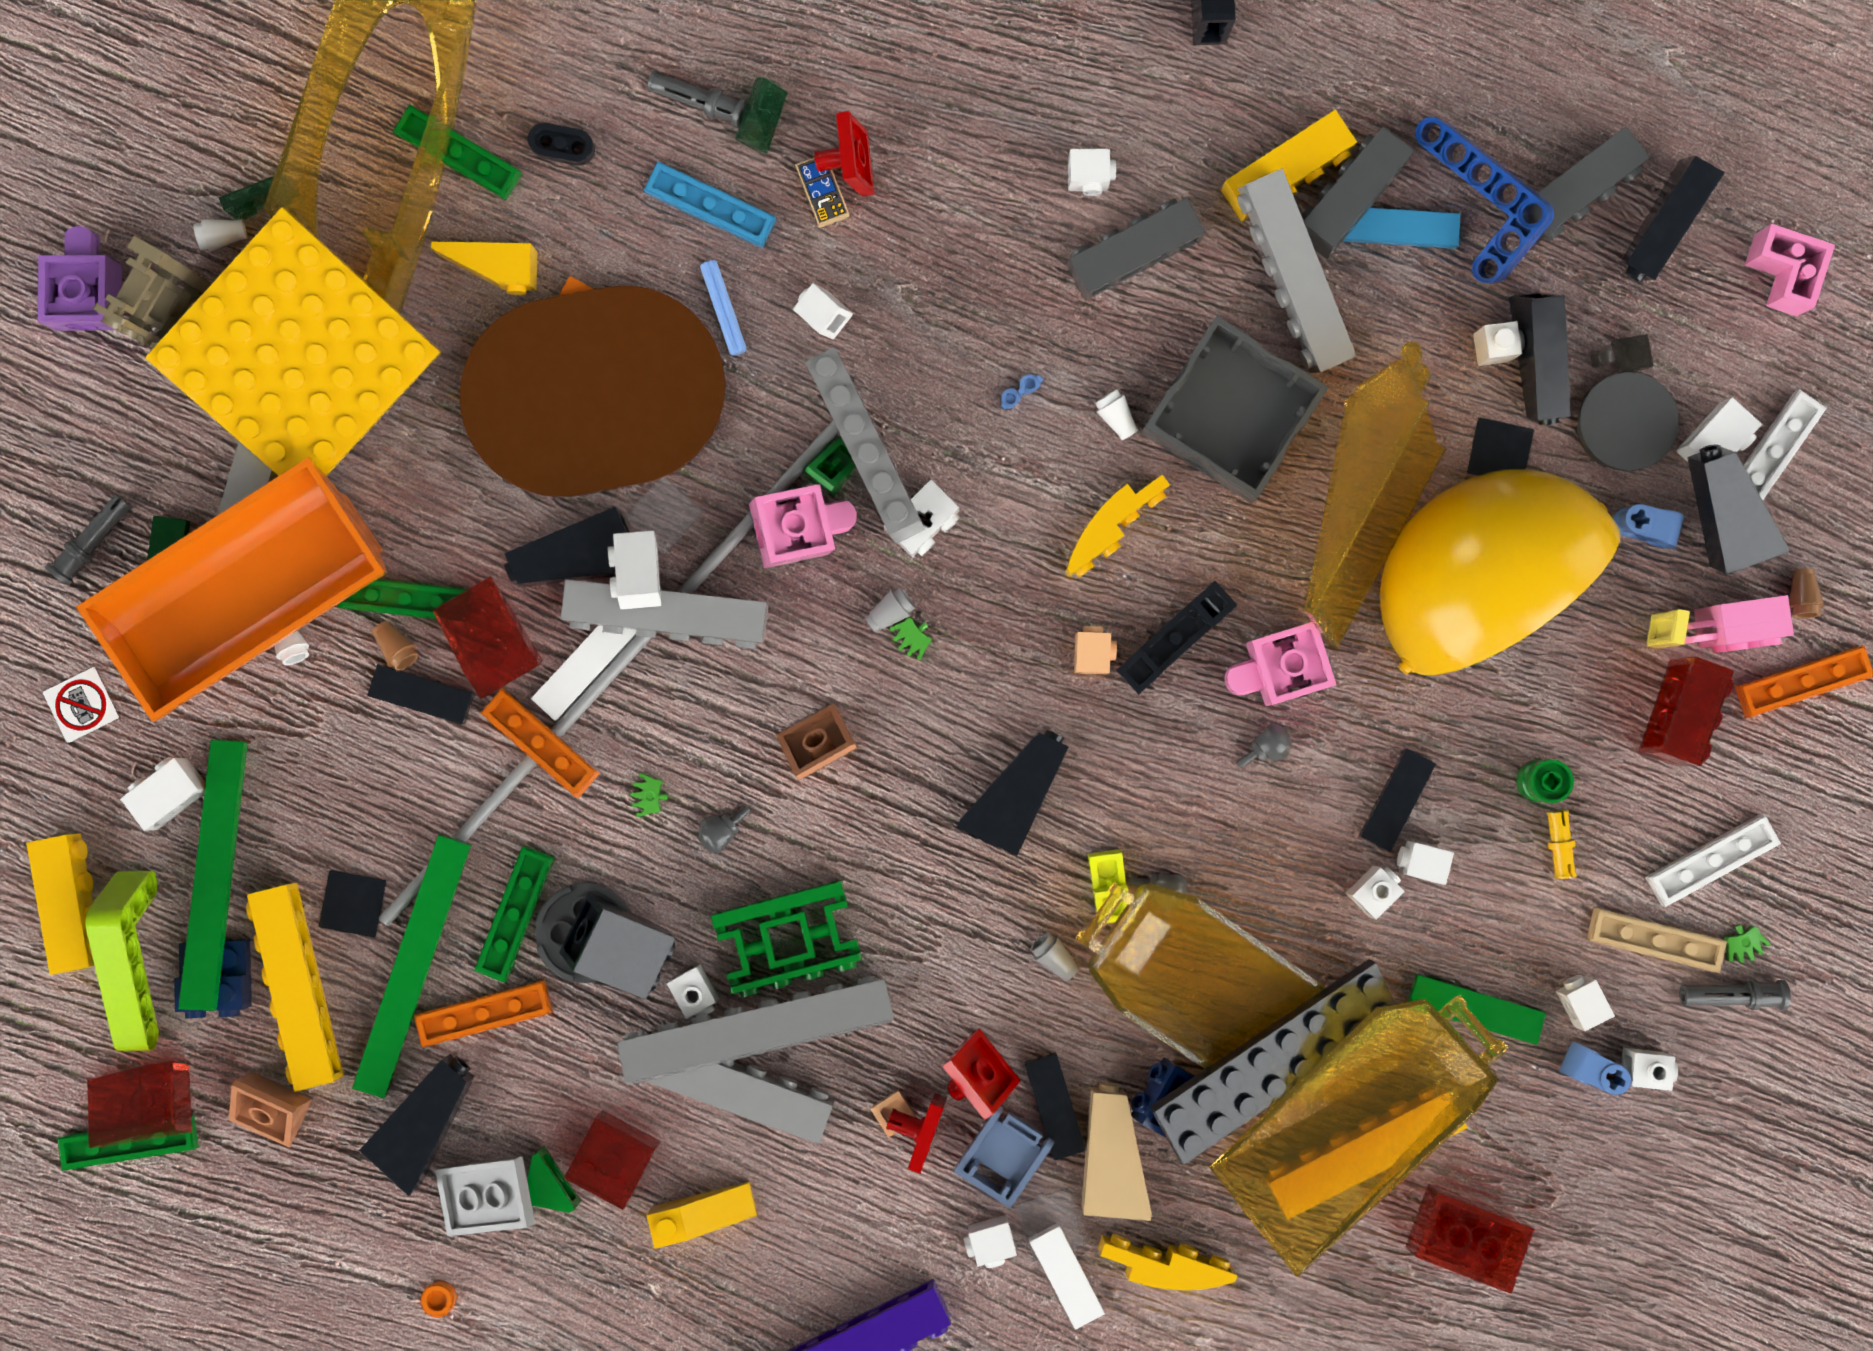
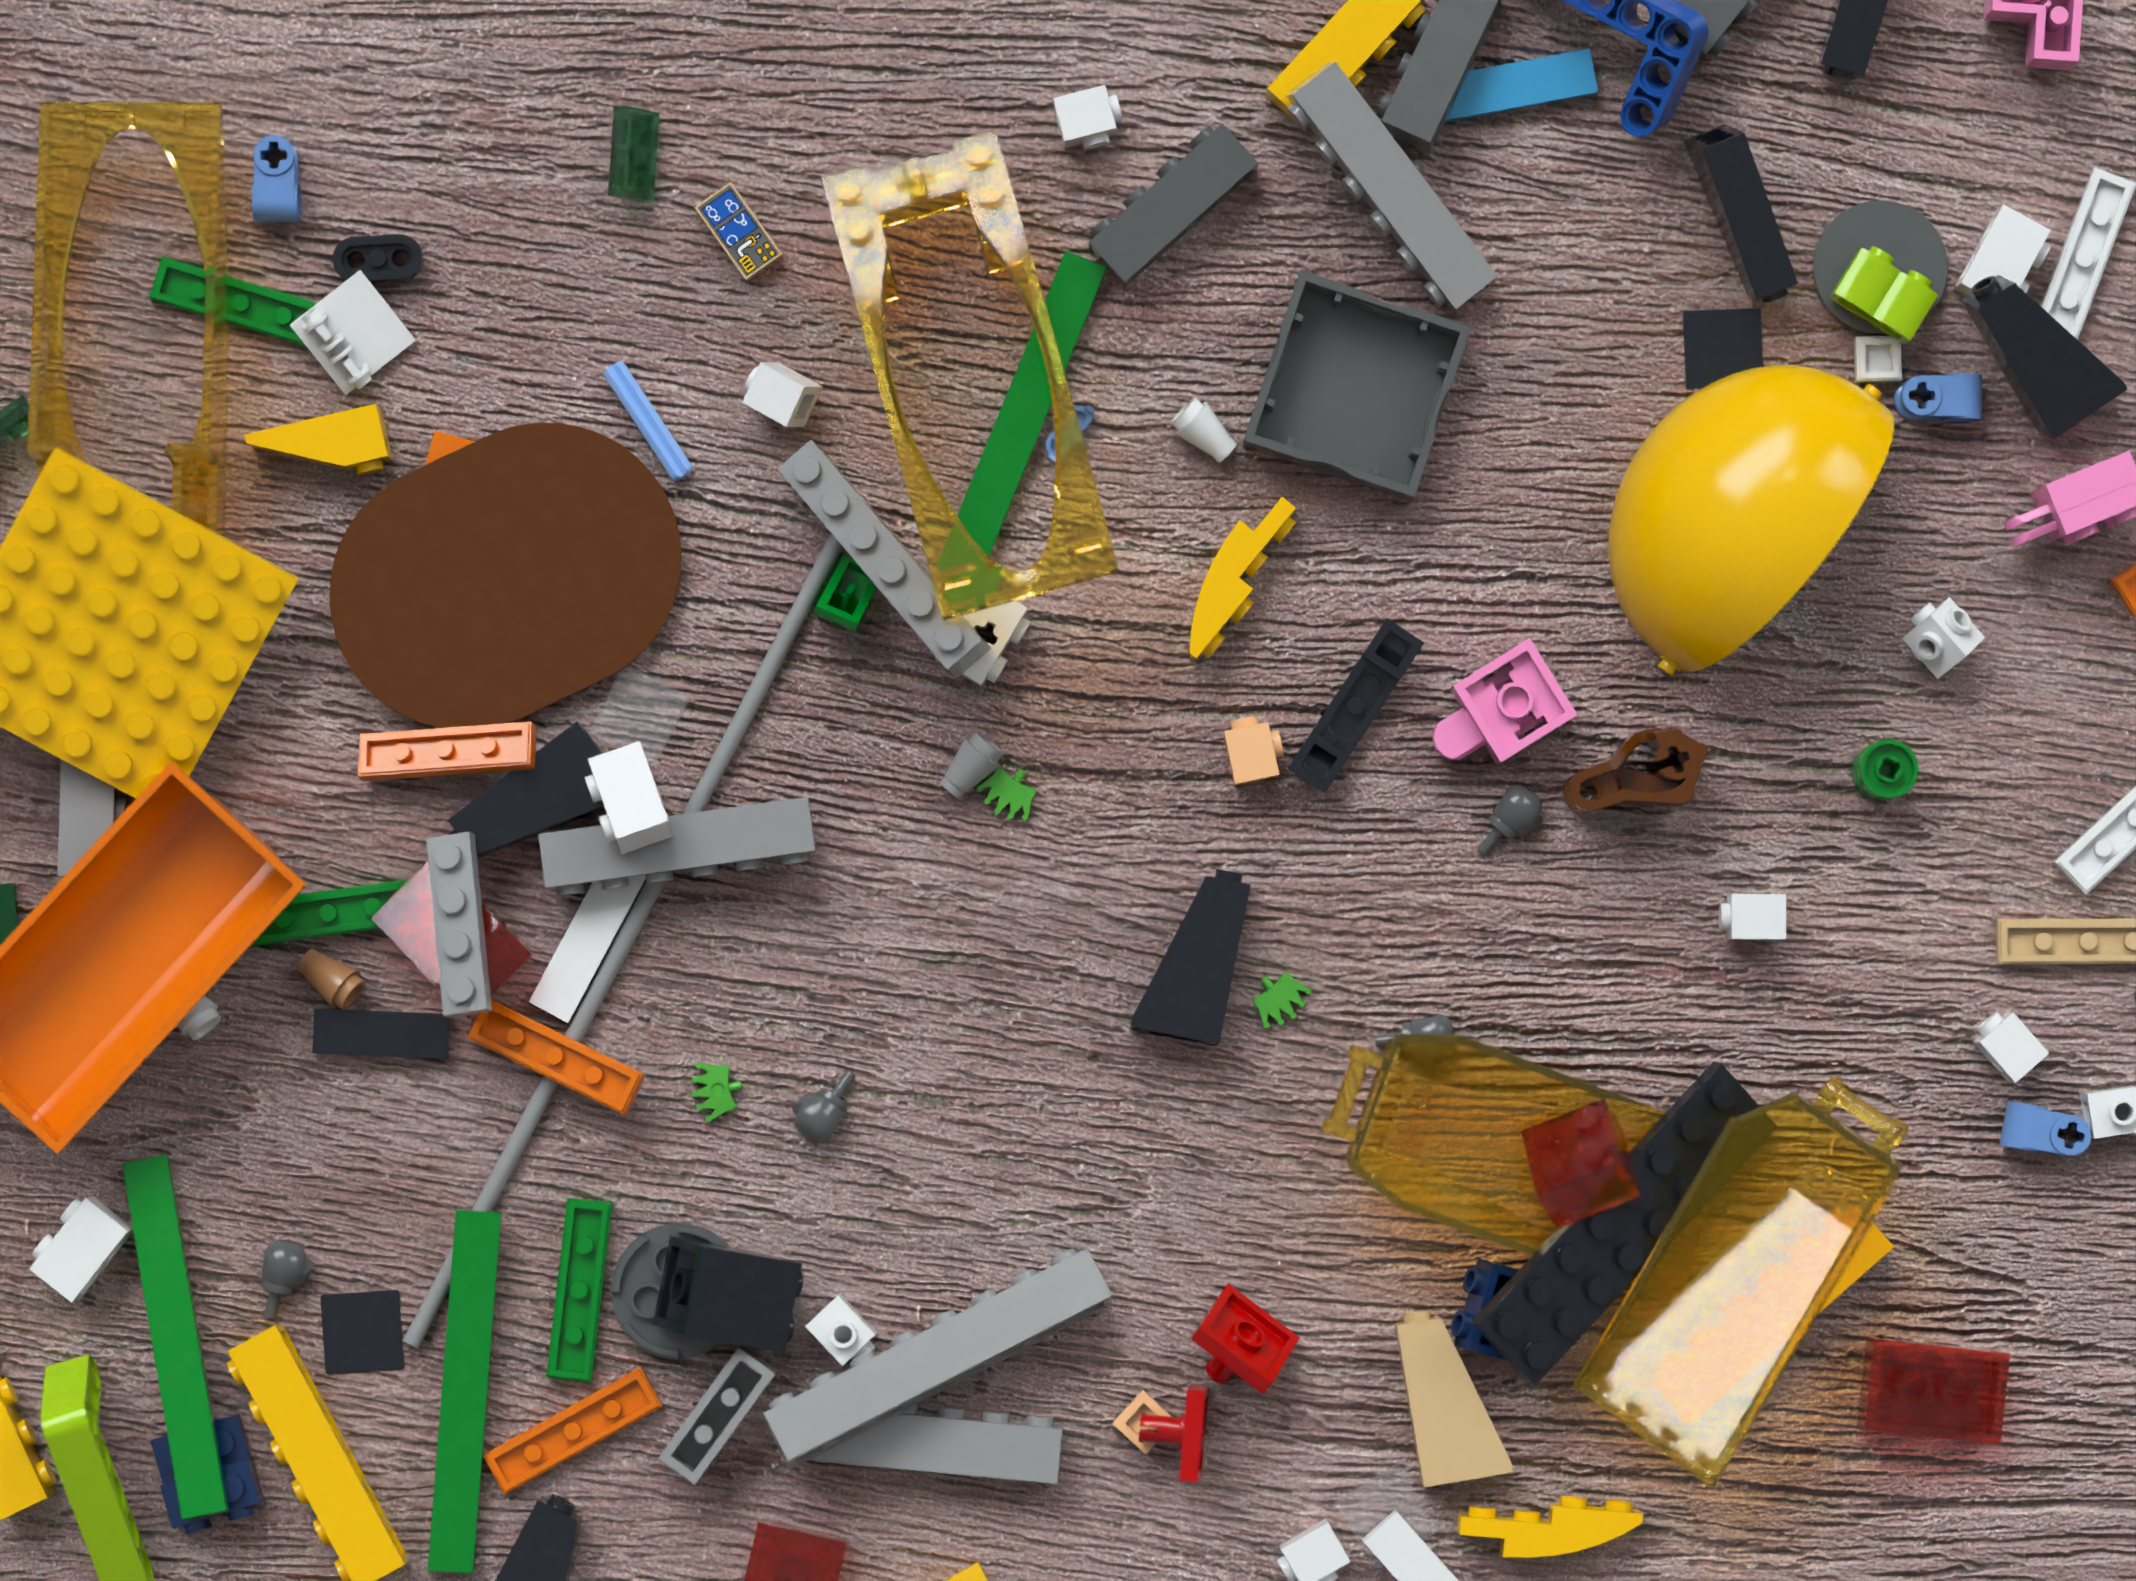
camera: 10 degrees left, 0 degrees up
(305, 845) = (282, 1270): none -> dark grey piece
(490, 630) = (459, 925): none -> light grey plate
(502, 75) = (276, 190): none -> medium blue piece
(518, 504) = (447, 751): none -> tile
(529, 190) = (352, 332): none -> white hinge
(587, 1031) = (718, 1414): none -> light grey brick
(710, 204) = (594, 288): dark azure tile -> none
(712, 102) = (563, 153): dark grey pin -> none
(781, 913) = (929, 1198): green fence -> none
(800, 527) = (823, 685): bright pink brick -> none
(816, 742) = (918, 962): nougat slope -> none
(851, 155) = (767, 179): red tile -> none
(961, 188) = (976, 177): none -> clear yellow windscreen
(986, 377) = (1027, 403): none -> green tile
(1008, 1149) = (1305, 1431): sand blue container -> none
(1054, 956) = (1302, 1163): light grey cone -> none
(1055, 1106) = (1353, 1359): black tile -> none
(1067, 832) = (1278, 997): none -> bright green piece
(1104, 870) = (1337, 1032): neon yellow slope -> none
(1257, 1011) = (1580, 1163): none -> clear red brick
(1375, 482) = (1563, 440): clear yellow windscreen -> none
(1376, 891) = (1701, 970): white brick -> none
(1381, 753) = (1625, 786): none -> reddish brown piece
(1397, 799) = (1701, 845): black tile -> none
(1494, 1013) = (1885, 1090): green tile -> none
(1498, 343) = (1682, 209): white brick -> none
(1561, 844) = (1929, 847): yellow pin -> none
(1610, 486) = (1877, 359): none -> white tile
(1610, 695) = (1942, 636): none -> white brick
(1626, 354) = (1857, 178): clear smoke plate -> none
(1630, 440) = (1884, 294): none -> lime brick
(1668, 629) = (1993, 530): light yellow tile -> none
(1686, 712) = (2045, 633): clear red brick -> none

